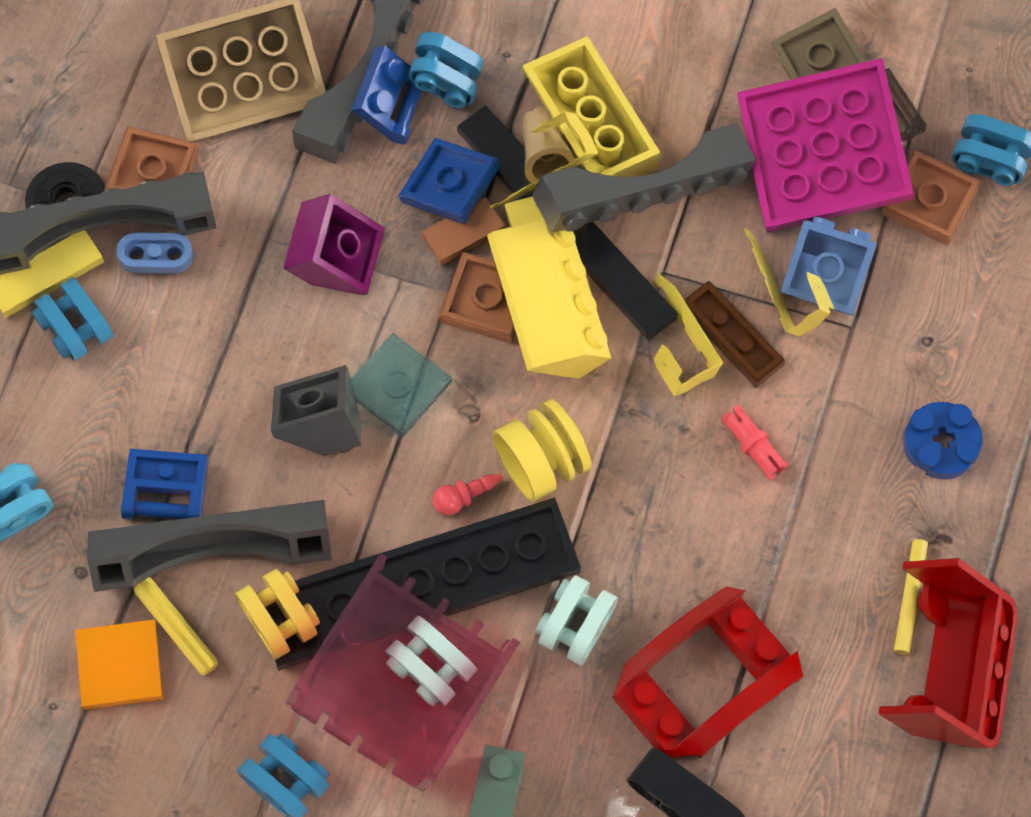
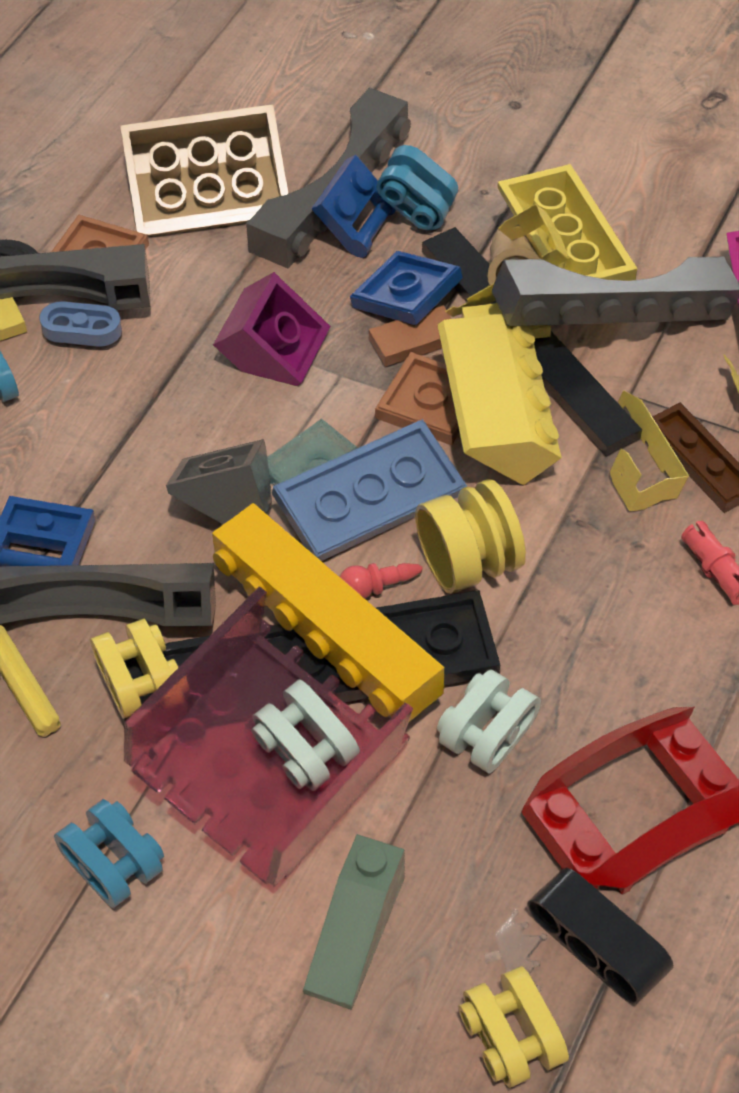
camera: 10 degrees right, 15 degrees down
(429, 541) = (328, 614): none -> yellow brick
(446, 405) = (367, 490): none -> medium blue tile

